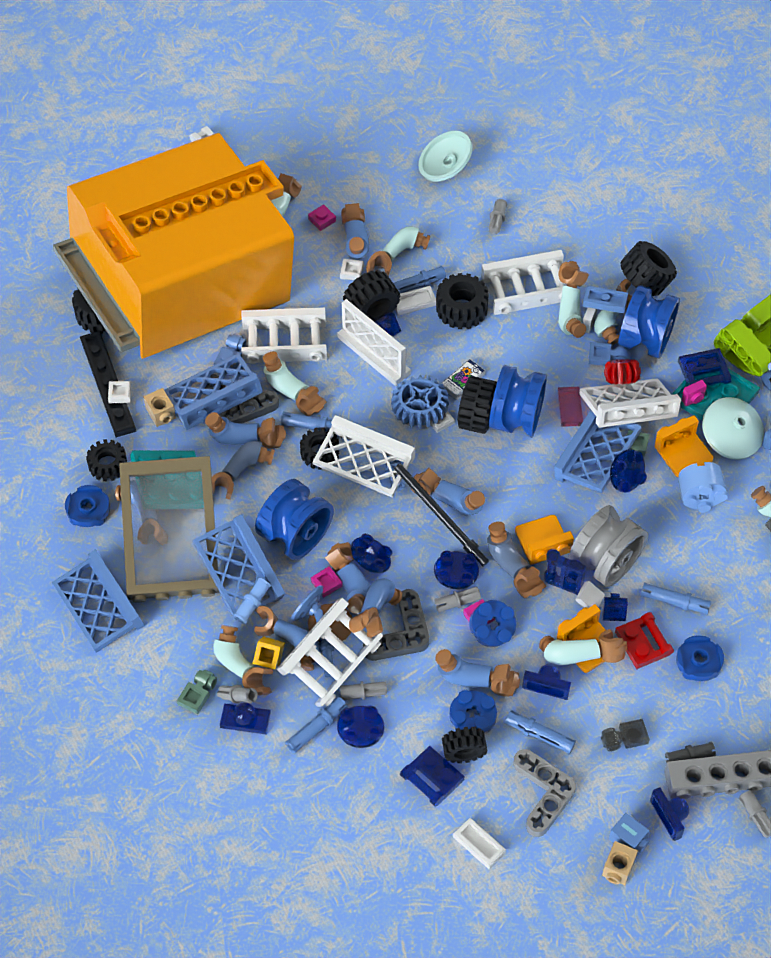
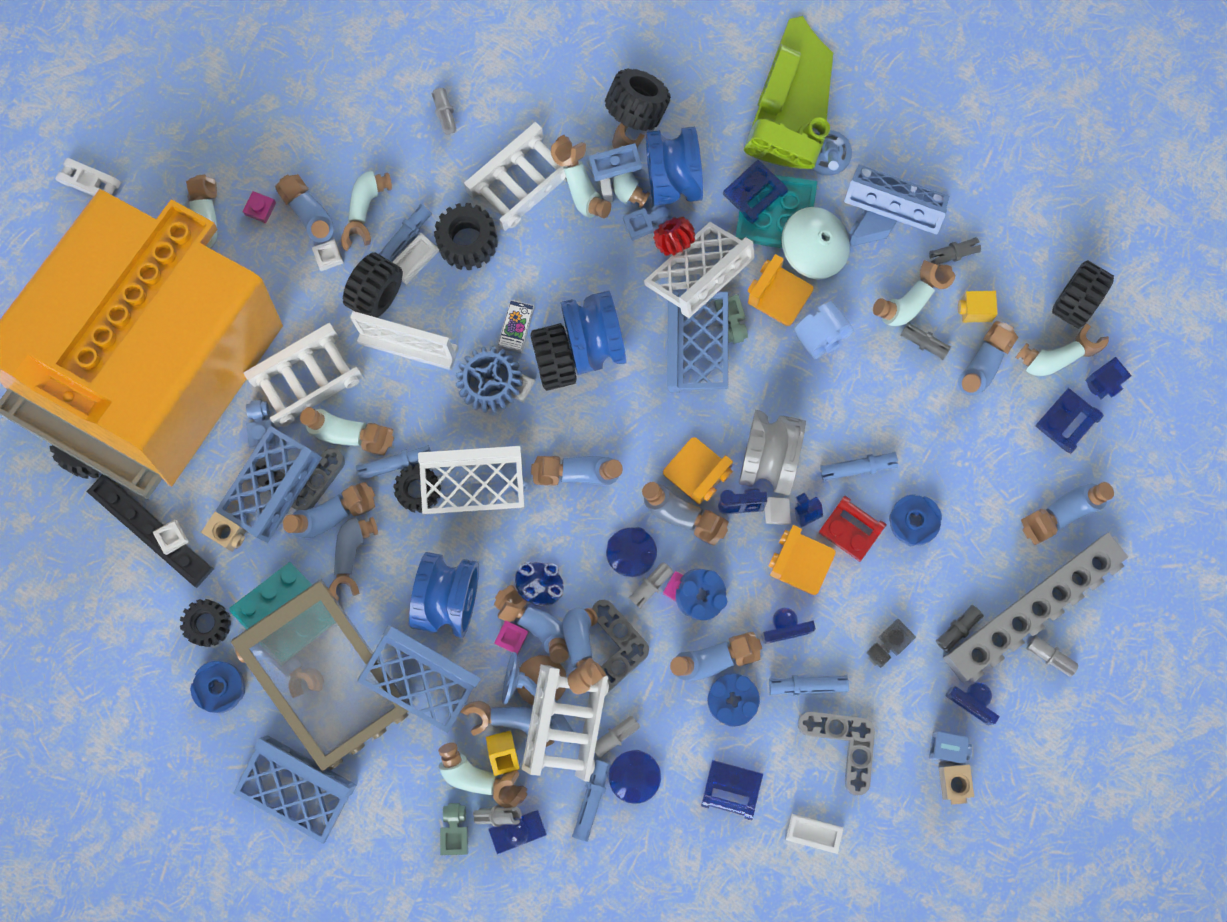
camera: 25 degrees left, 20 degrees up
(252, 600) = (453, 708): light blue pin -> none
(389, 324) = (405, 307): clear blue tile -> none
(445, 156) = (341, 65): light aqua dish -> none
(464, 745) = (748, 745): black tyre -> none
(470, 546) = (630, 518): black bar -> none
(570, 406) = (640, 301): clear pink tile -> none
(575, 651) = (788, 590): piece -> none
(628, 470) = (741, 350): clear blue dish -> none
(694, 393) = (761, 226): dark pink plate -> none

